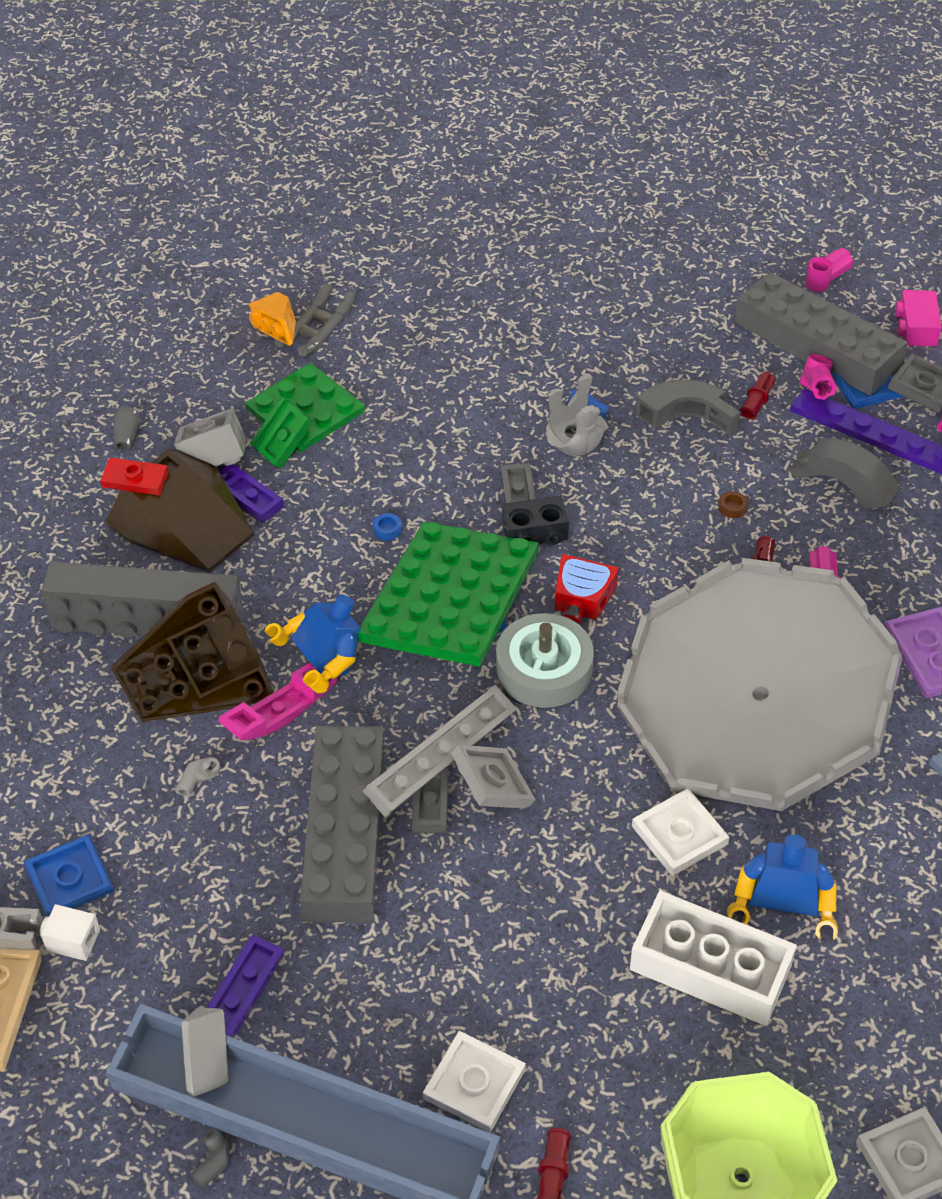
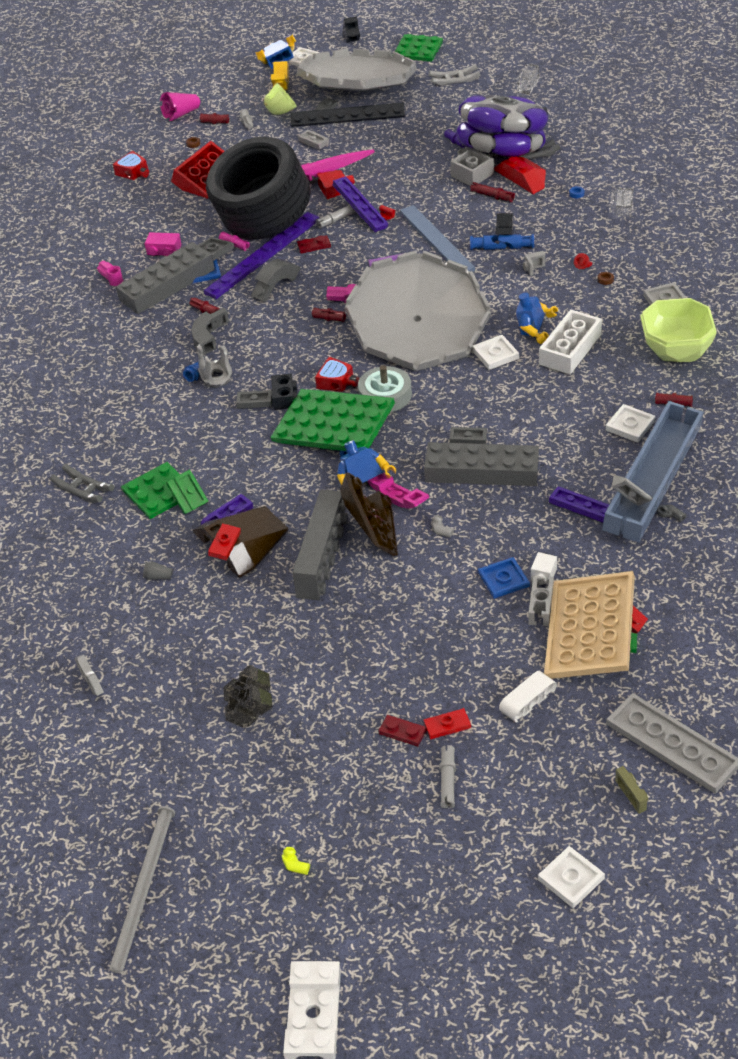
camera: 80 degrees left, 5 degrees down
(213, 439) = (187, 516): light grey slope -> none
(274, 317) = (81, 494): light orange slope -> none
(387, 526) = (269, 454): blue tile -> none
(434, 753) = (444, 423): light grey plate -> none
(492, 776) = (455, 411): light grey plate -> none
(733, 504) = (282, 323): reddish brown tile -> none
(818, 376) = (198, 281): dark pink piece -> none

